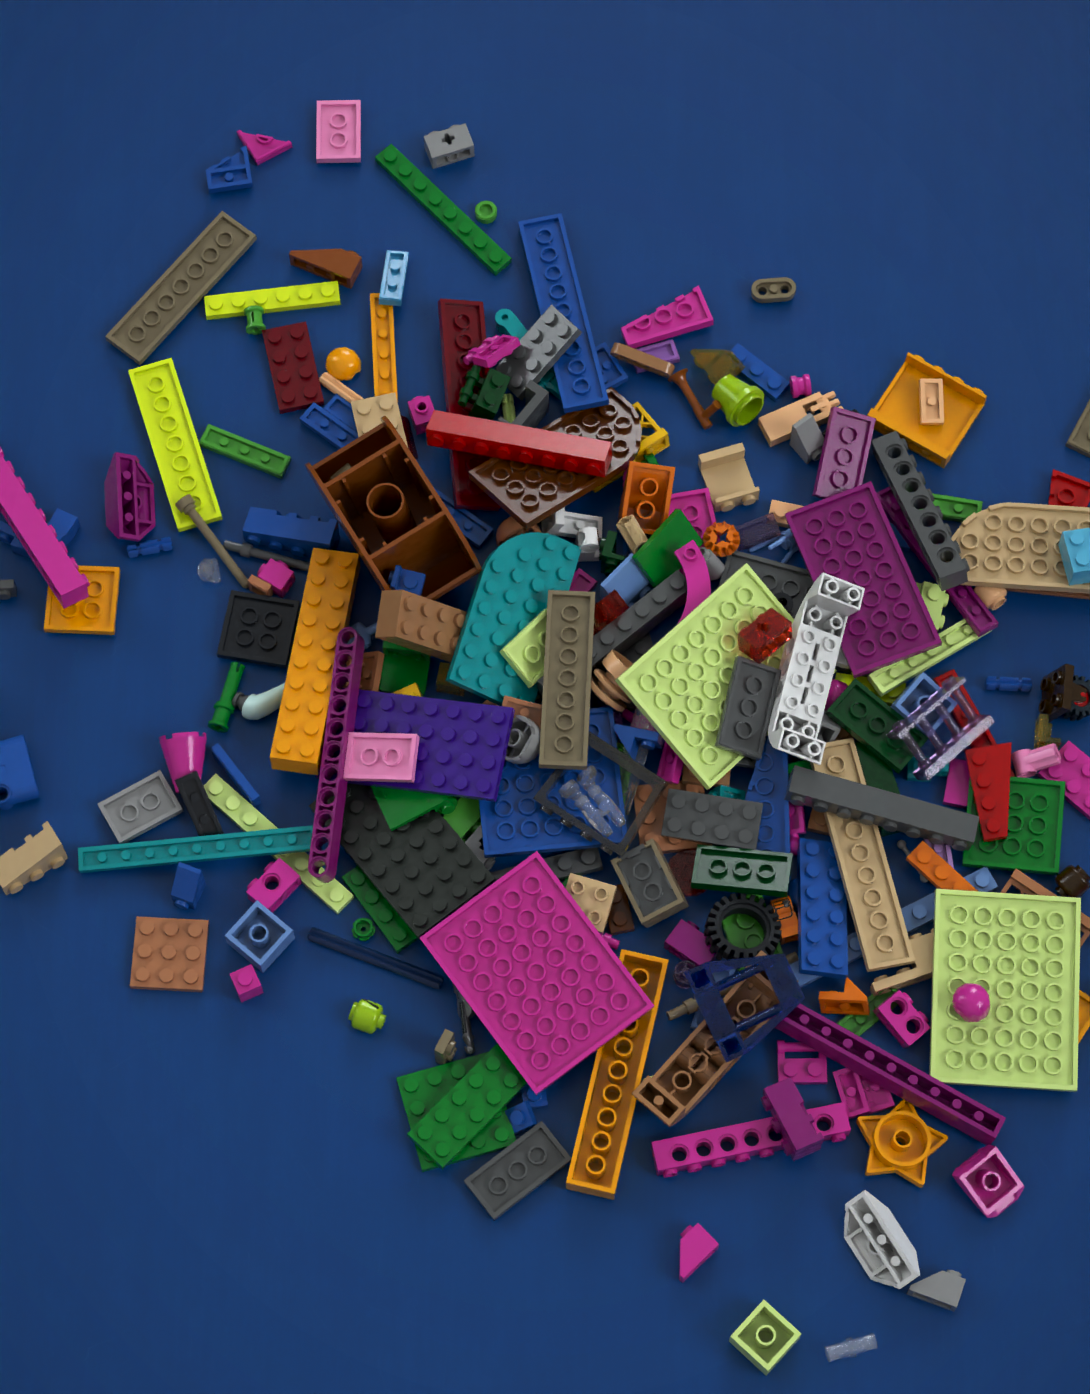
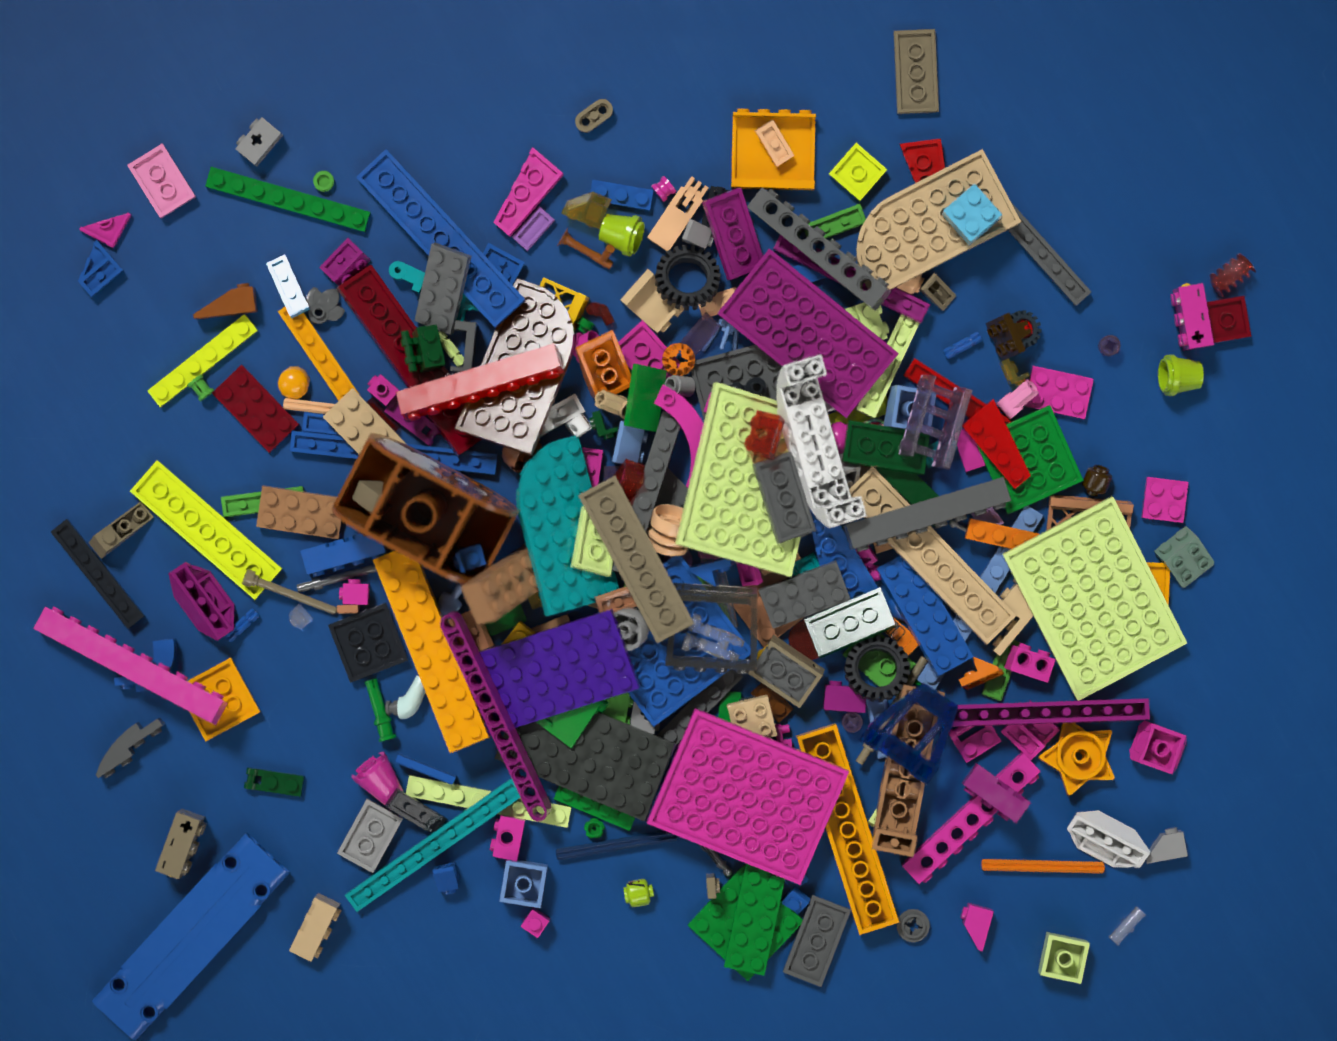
camera: 30 degrees left, 20 degrees up
(48, 426) = (97, 573): none -> black plate
(83, 706) = (274, 782): none -> dark green plate
(93, 399) = (120, 529): none -> dark tan slope
(169, 954) = (463, 932): nougat plate -> none
(181, 288) = (124, 394): dark tan plate -> none
(272, 476) = (298, 512): none -> medium nougat plate
(381, 757) = (532, 701): bright pink plate -> none
(418, 314) = (326, 303): none -> dark grey plate
(432, 459) = (413, 426): none -> magenta plate
(461, 286) = (345, 262): none -> magenta bracket
(492, 350) = (407, 309): dark pink plate -> none
(626, 1203) = (918, 933): none -> dark grey gear
(642, 360) = (528, 243): medium nougat beam -> none
(673, 459) = (600, 310): none -> clear red arm
(784, 454) = (684, 299): none -> black tyre
(797, 1234) = (1042, 866): none -> orange axle
(971, 1002) = (1076, 626): dark pink hair -> none
(997, 472) = (857, 171): none -> neon yellow plate
(1011, 618) = (937, 292): none -> dark tan slope

